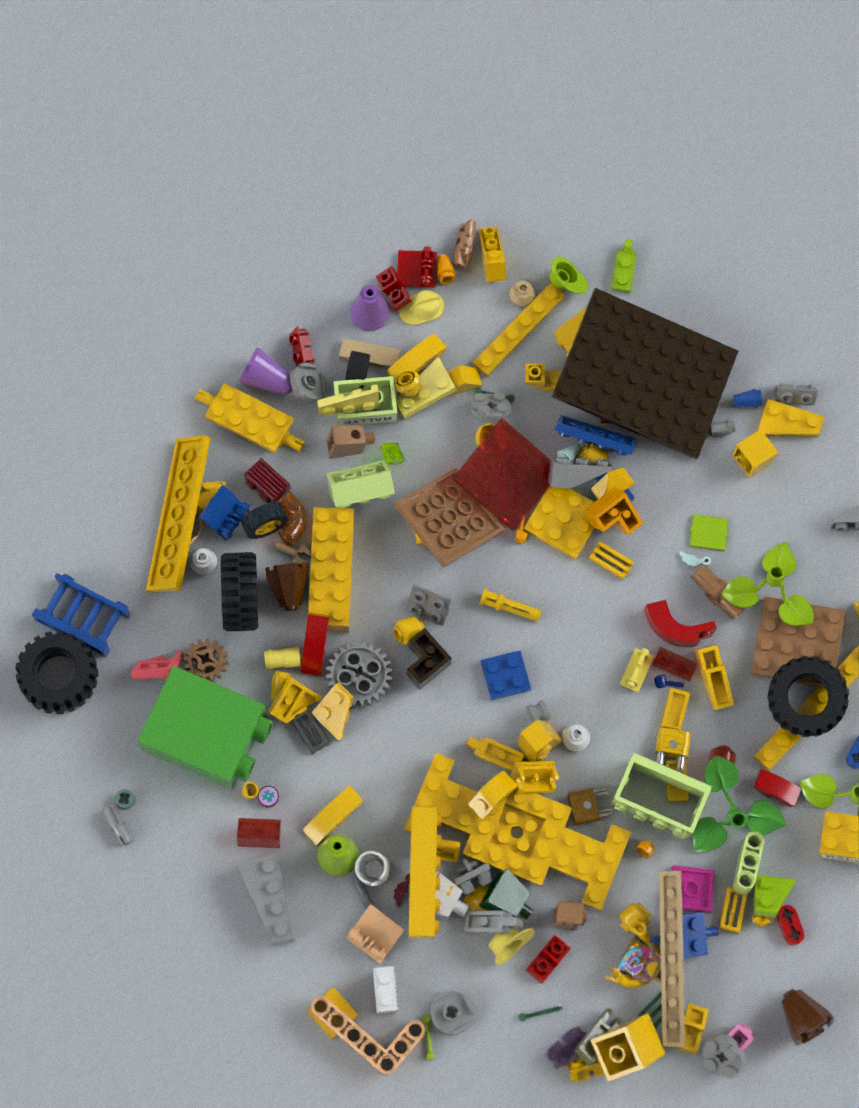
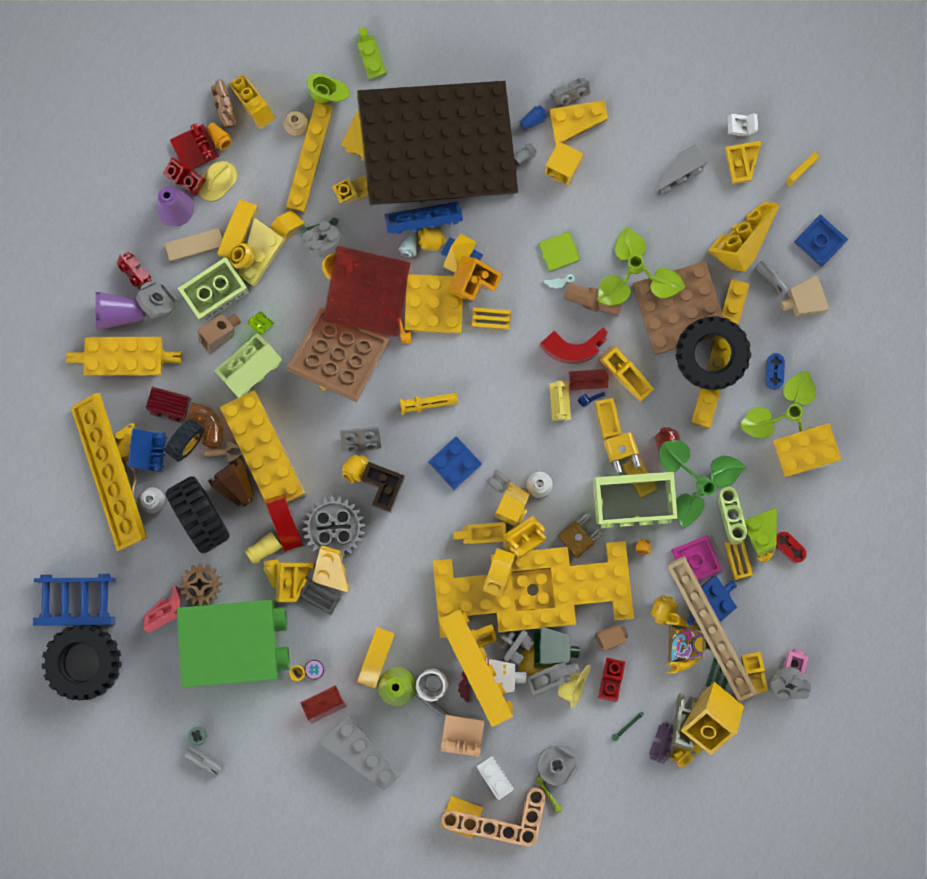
camera: 25 degrees left, 10 degrees up
(357, 366) = (191, 263): black tyre -> none
(357, 400) = (206, 296): light yellow wing -> none
(571, 473) = (421, 262): light grey slope -> none
(777, 787) = (723, 439): red slope -> none
(804, 1016) = (838, 616): reddish brown cone -> none

